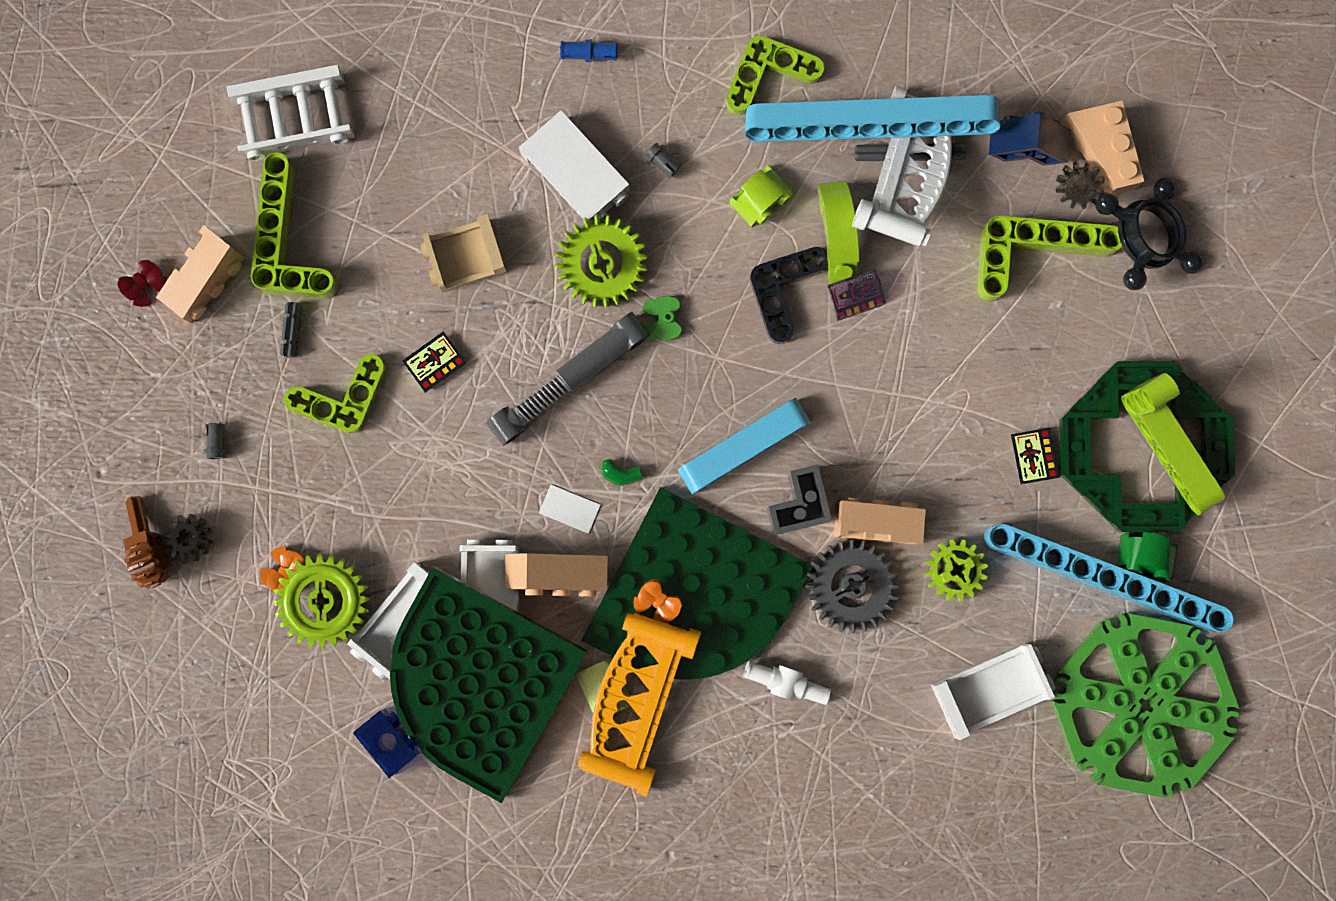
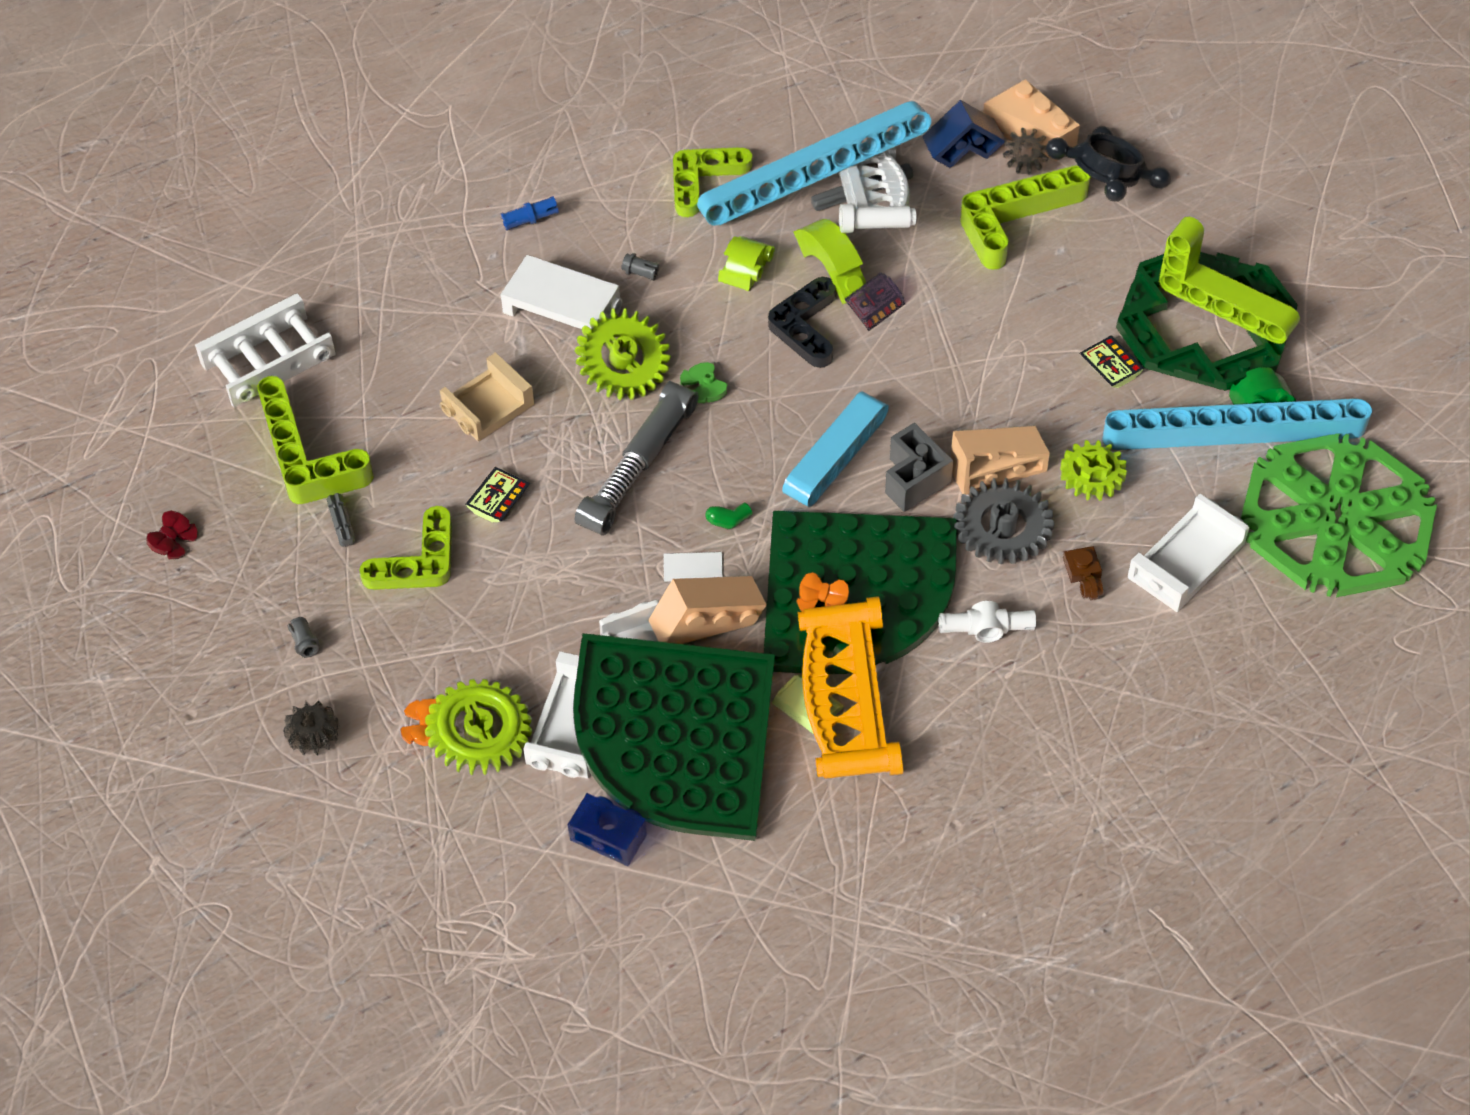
camera: 20 degrees left, 30 degrees down
(144, 550) = (269, 751): dark orange gear -> none
(201, 276) = (233, 499): light nougat wedge -> none
(897, 659) = (1085, 568): none -> reddish brown plate

